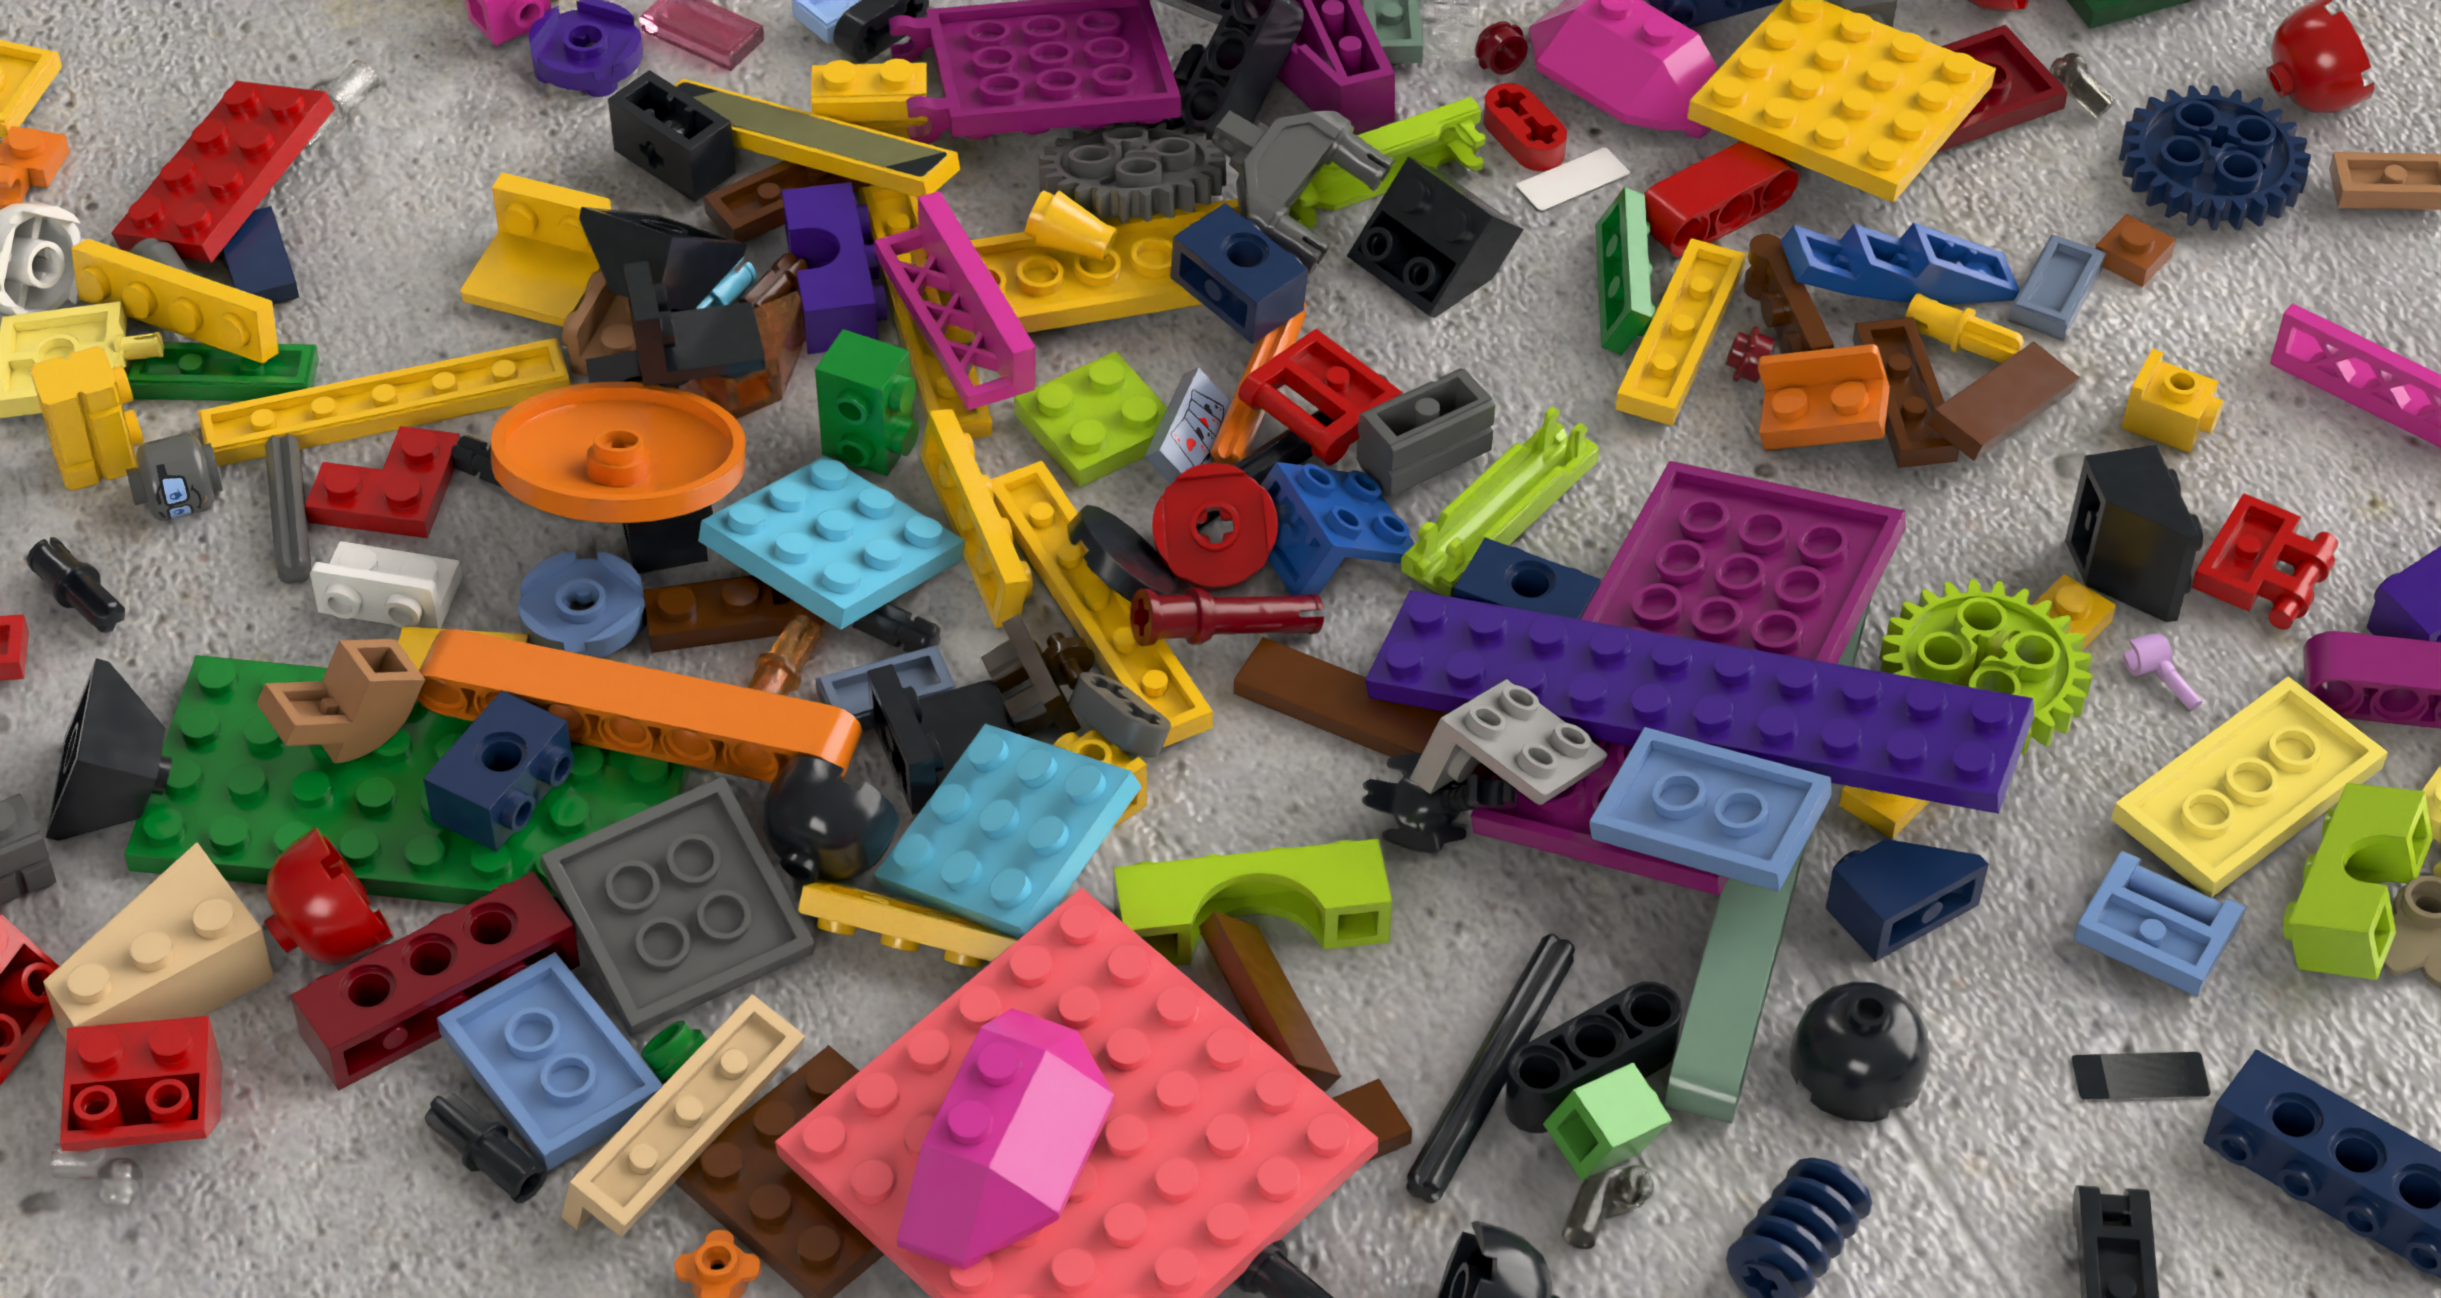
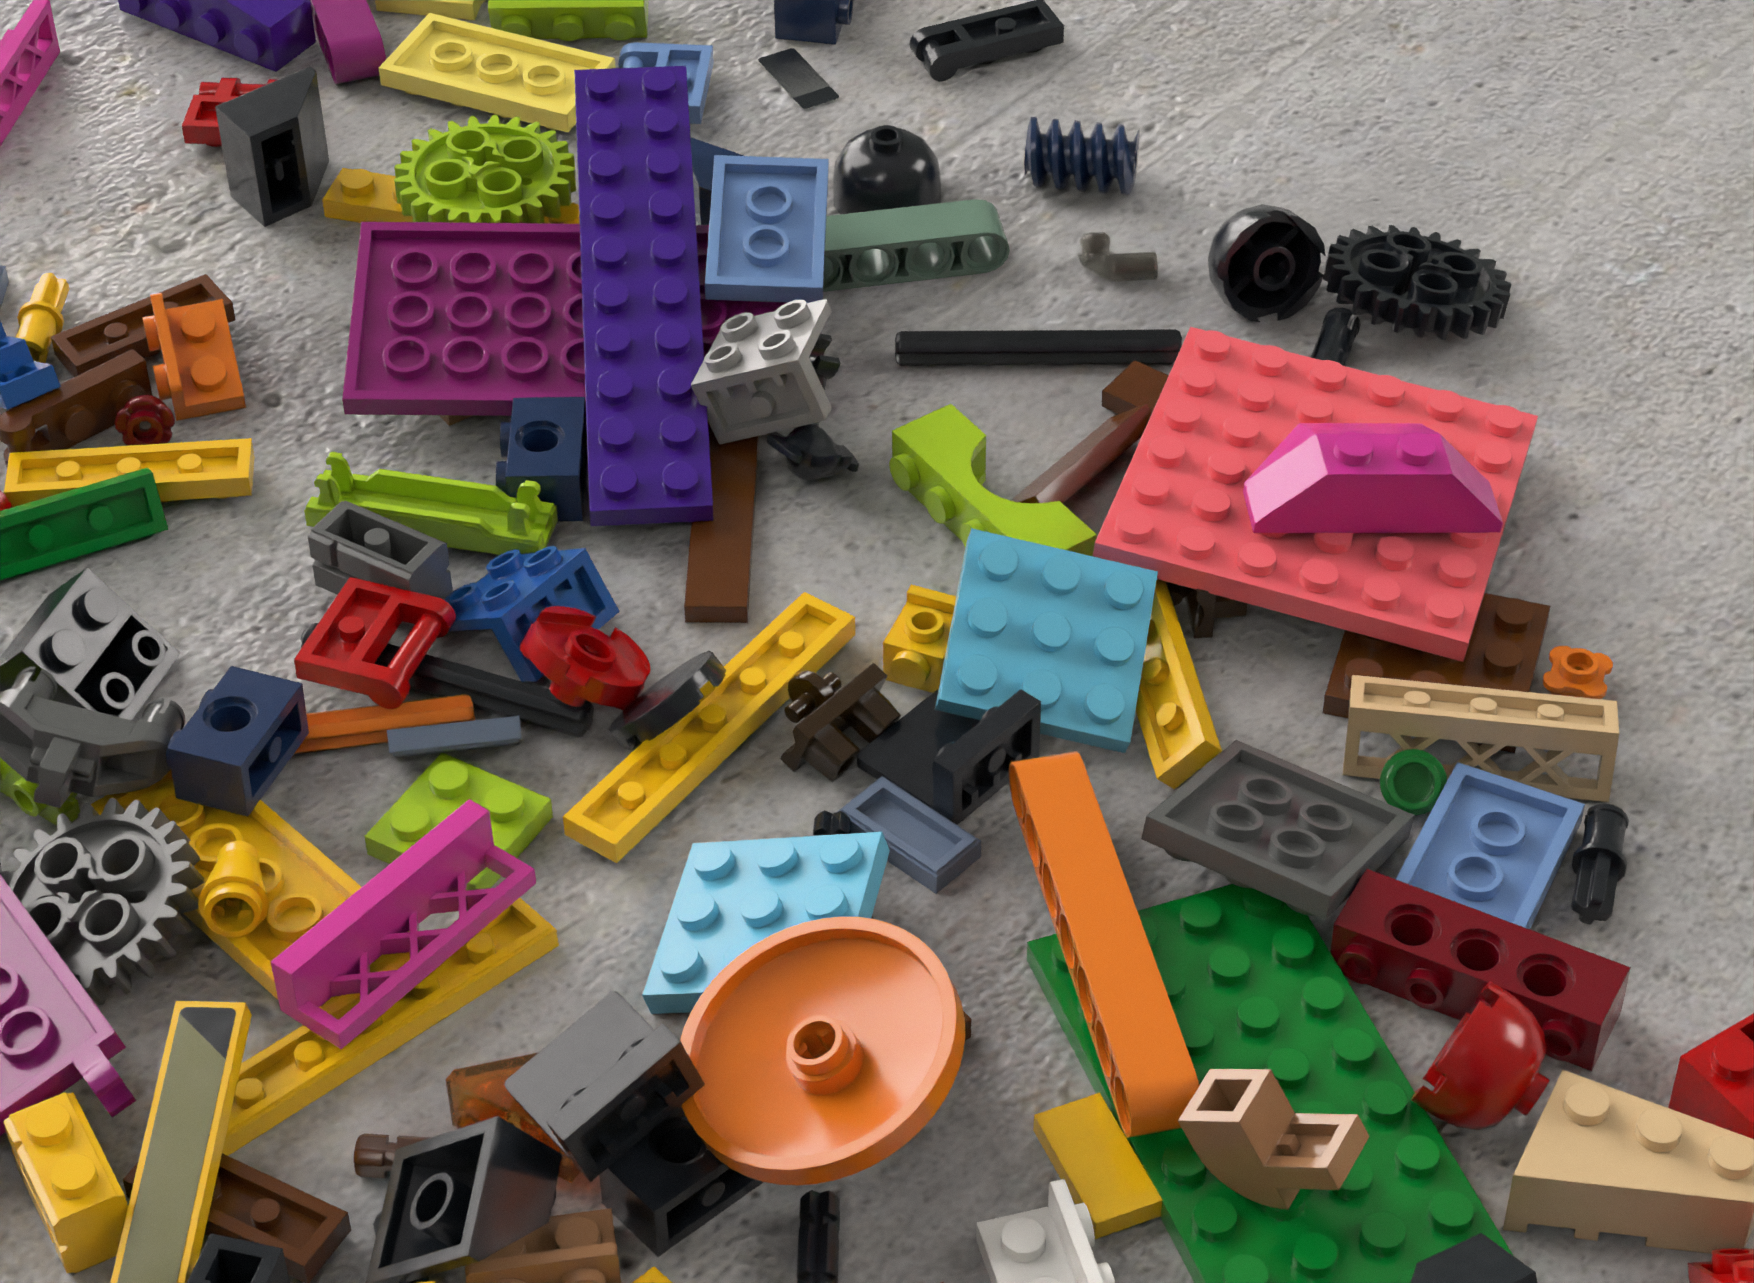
camera: 115 degrees left, 5 degrees down
(499, 771) = (1250, 996): dark blue brick -> none
(592, 632) = (1005, 1106): medium blue plate -> none
(781, 667) = (948, 904): clear orange axle -> none
(825, 824) = (1129, 757): black cylinder -> none
(837, 286) = (400, 1072): dark purple arch -> none
(866, 403) = (583, 943): green brick -> none
(972, 514) = (660, 841): yellow plate -> none
(1119, 714) = (860, 629): dark grey beam -> none
(1200, 616) = (649, 594): dark red pin -> none
(1592, 1047) = (996, 287): black beam -> none
(1607, 1121) = (1061, 255): brick -> none
(2003, 401) = (137, 265): reddish brown tile -> none
(2154, 654) = (392, 142): lavender hand -> none
(2171, 404) = (83, 173): yellow brick -> none

